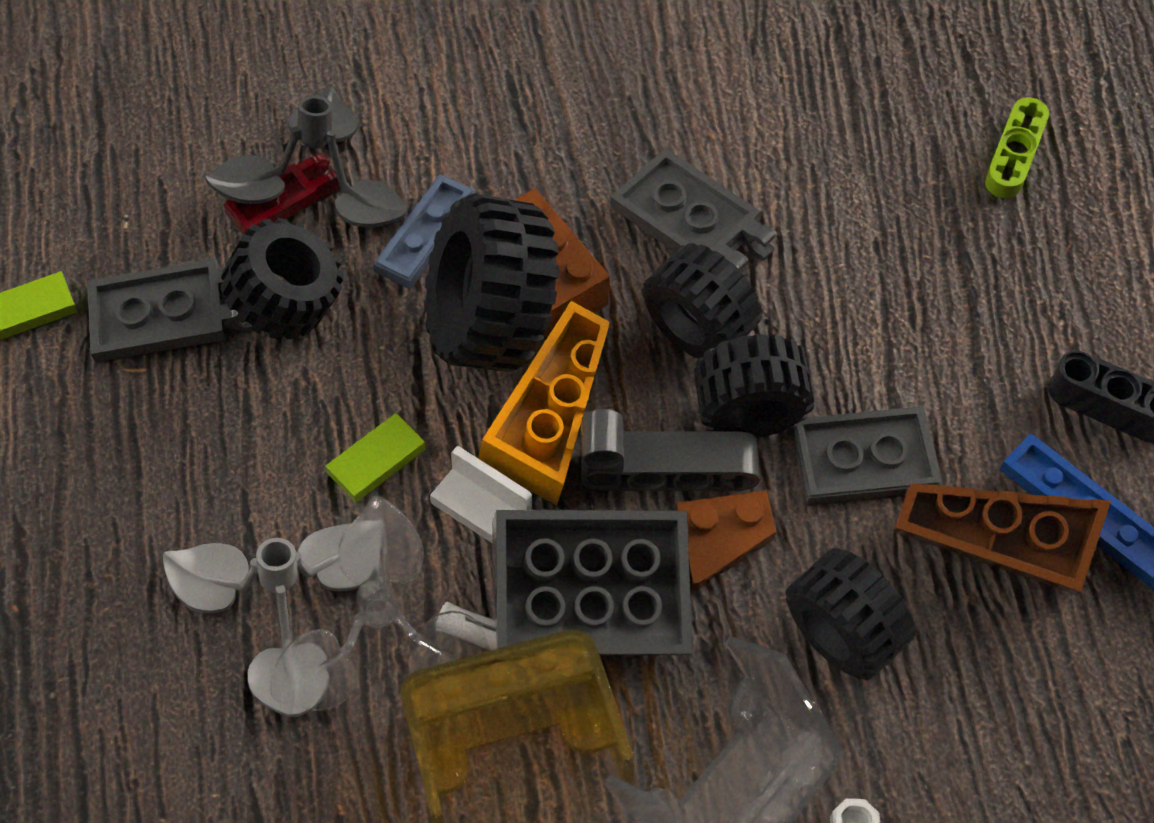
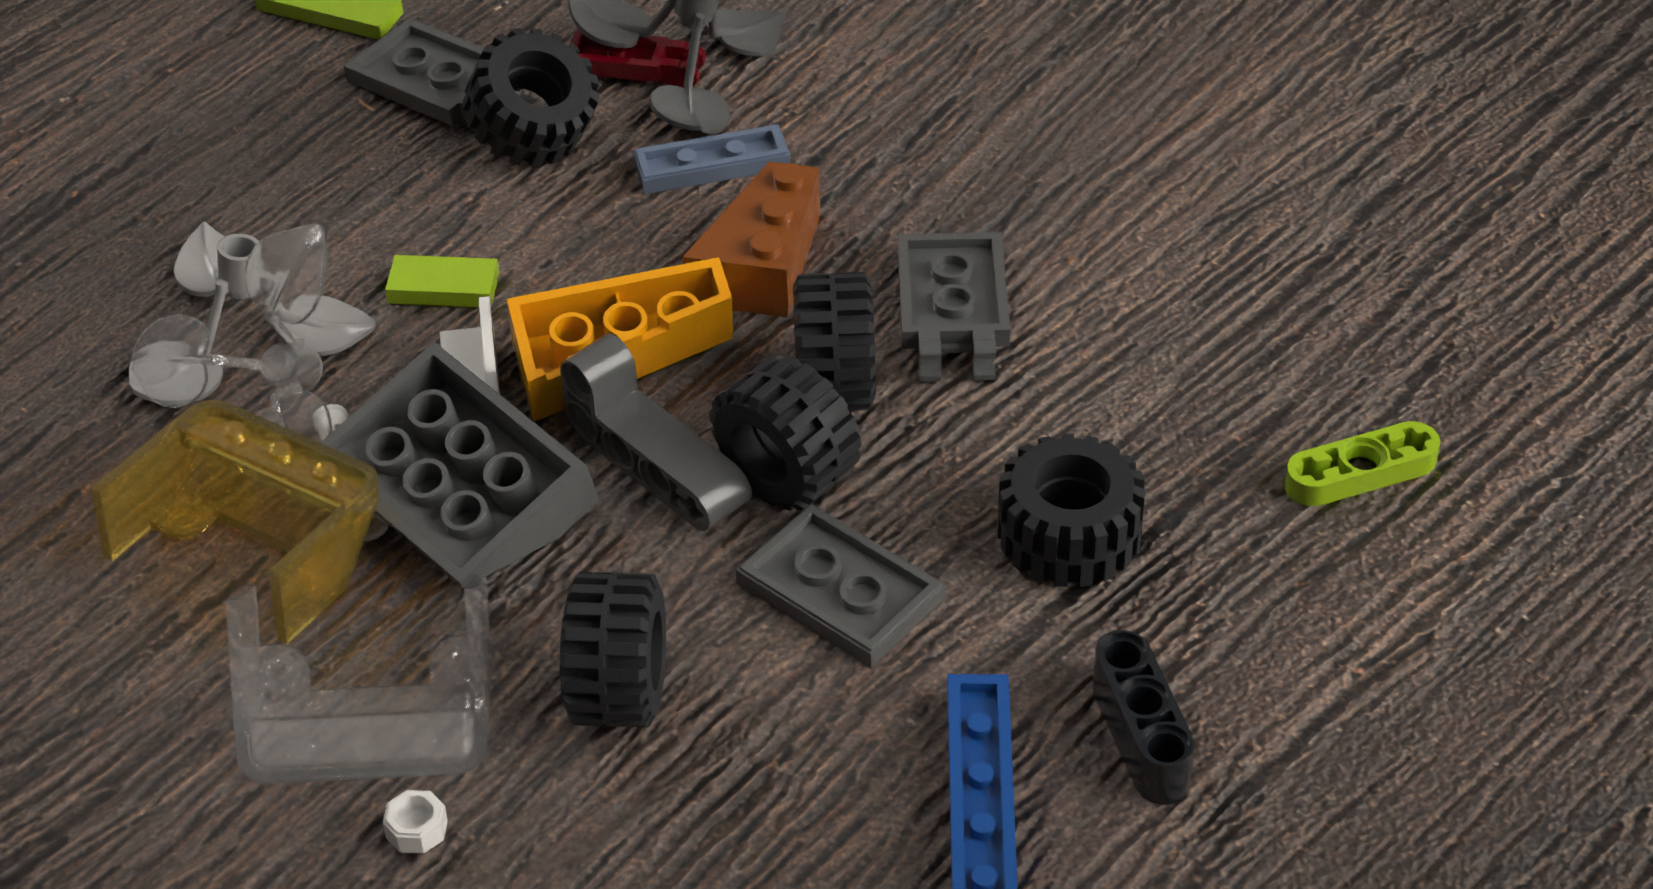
camera: 50 degrees right, 15 degrees down
(491, 283) = (657, 185): black tyre -> none
(725, 531) = (630, 537): dark orange wing -> none
(945, 275) = (1070, 510): none -> black tyre
(1020, 533) = (866, 729): dark orange wedge -> none

